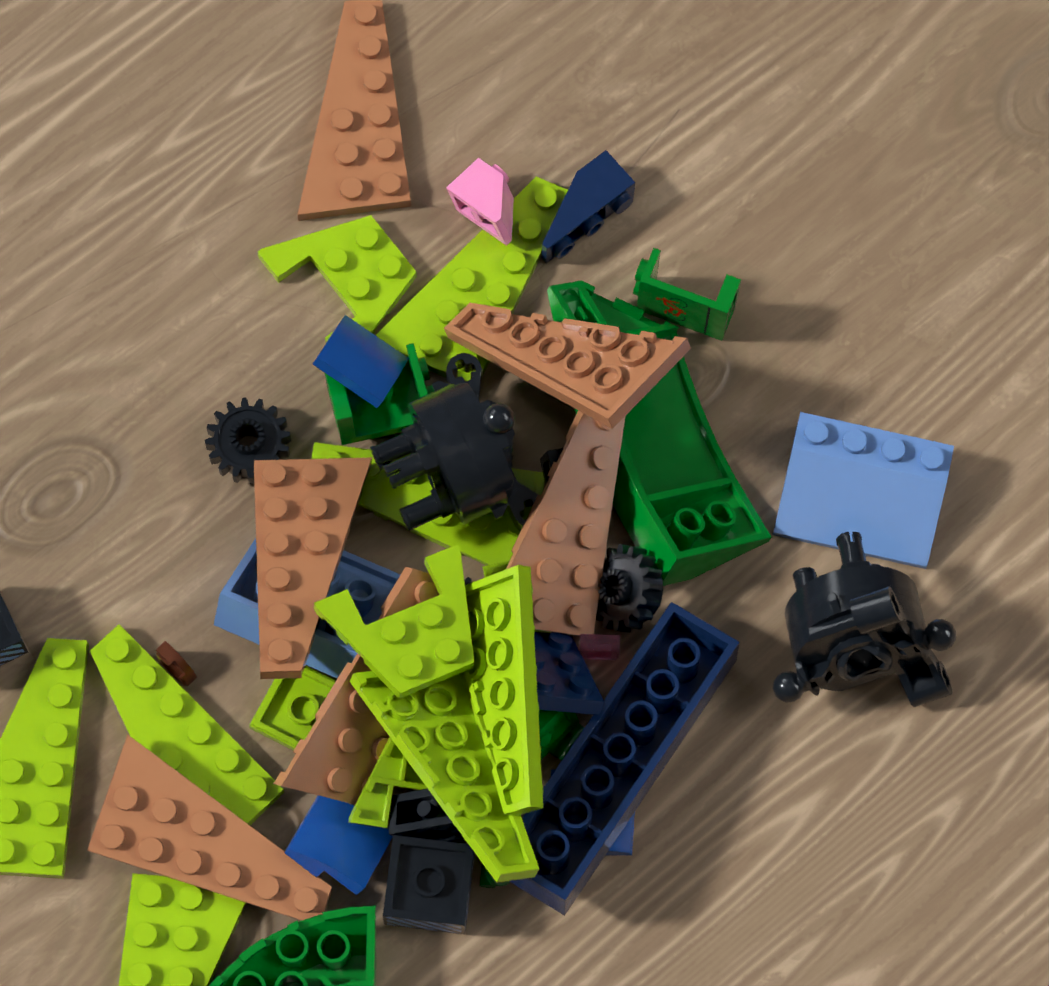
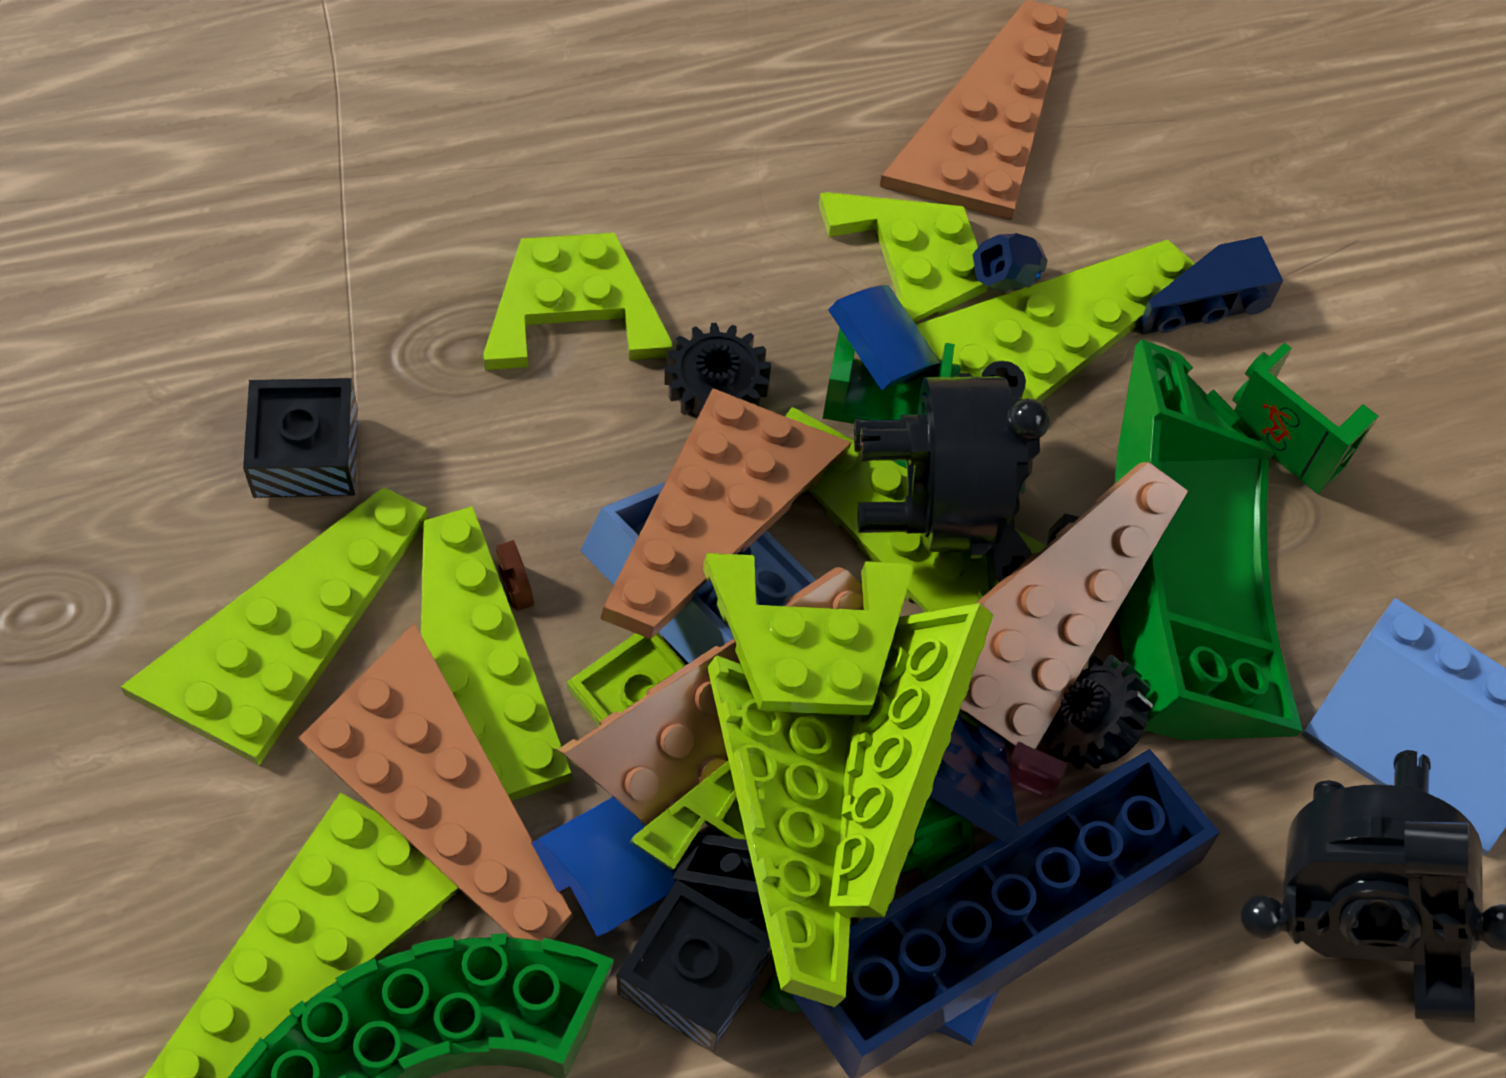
camera: 20 degrees right, 10 degrees down
(103, 409) = (572, 282): none -> lime wing
(426, 254) = (1009, 261): none -> dark blue rock
(485, 199) = (1099, 234): bright pink slope -> none
(572, 359) = (1146, 423): nougat wing -> none

